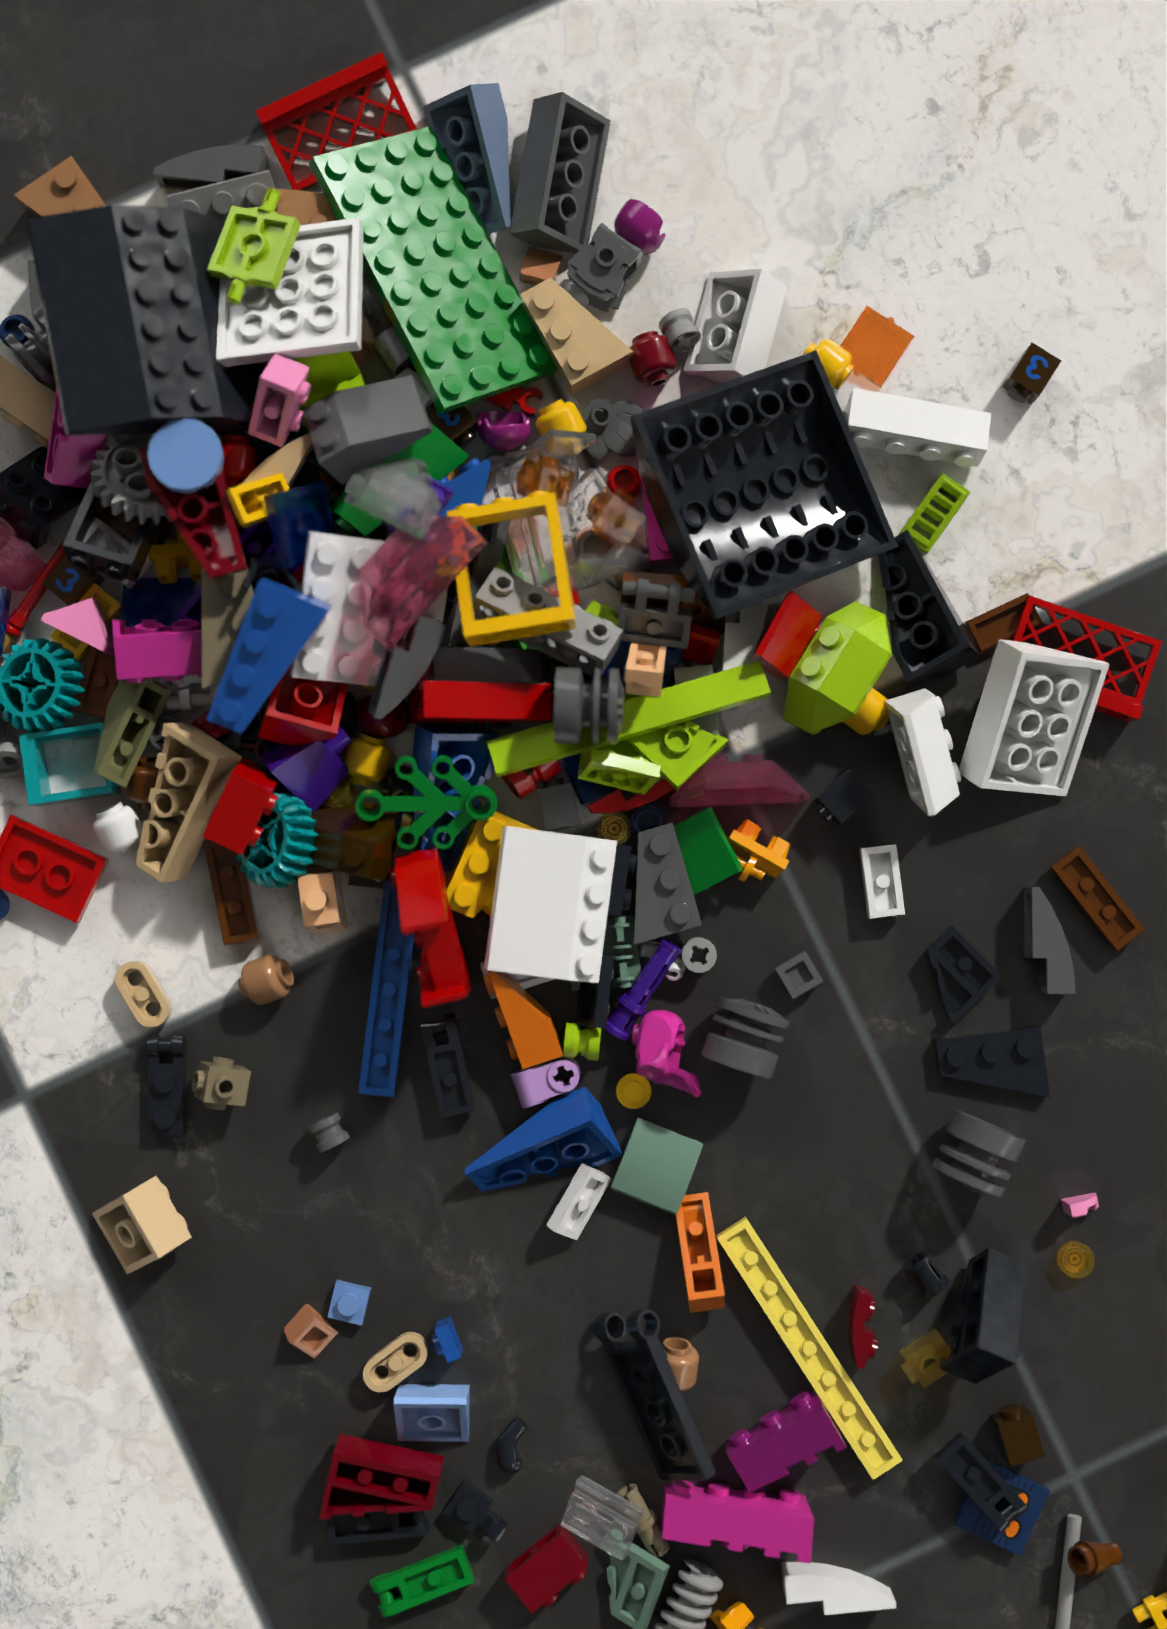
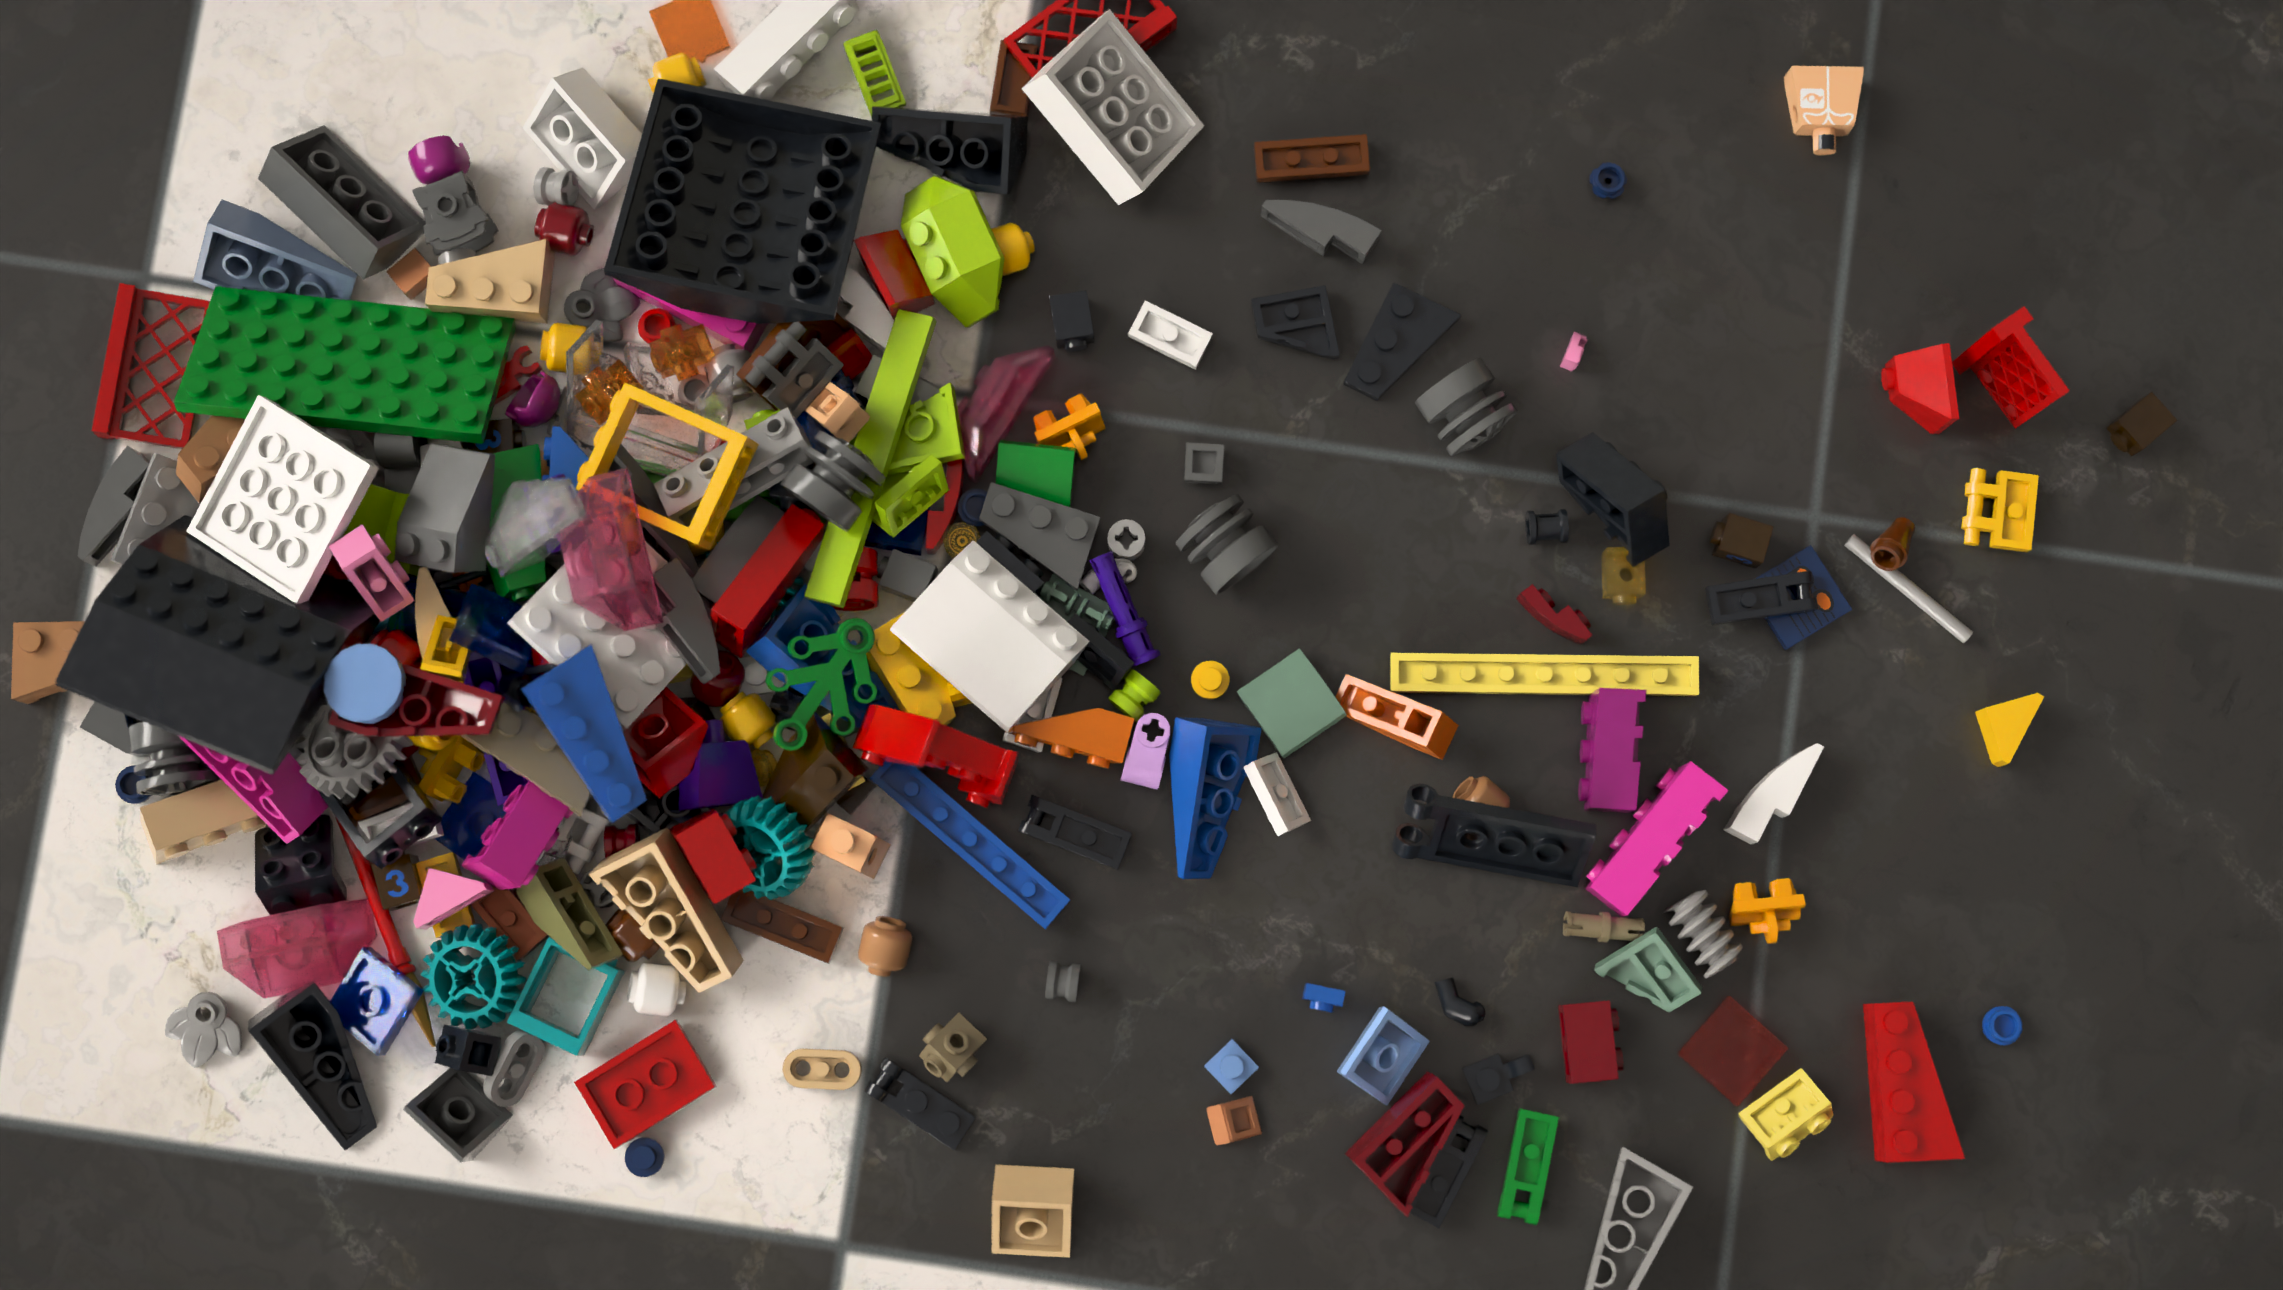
camera: 55 degrees left, 5 degrees down
(254, 247) = (219, 504): lime plate -> none
(396, 1361) = (1312, 1058): tan plate -> none
(602, 1517) = (1574, 960): clear plate -> none
(658, 1051) = (1187, 630): dark pink head -> none
(924, 749) = (1076, 219): white slope -> none
(1075, 1259) = (1621, 388): clear yellow tile -> none

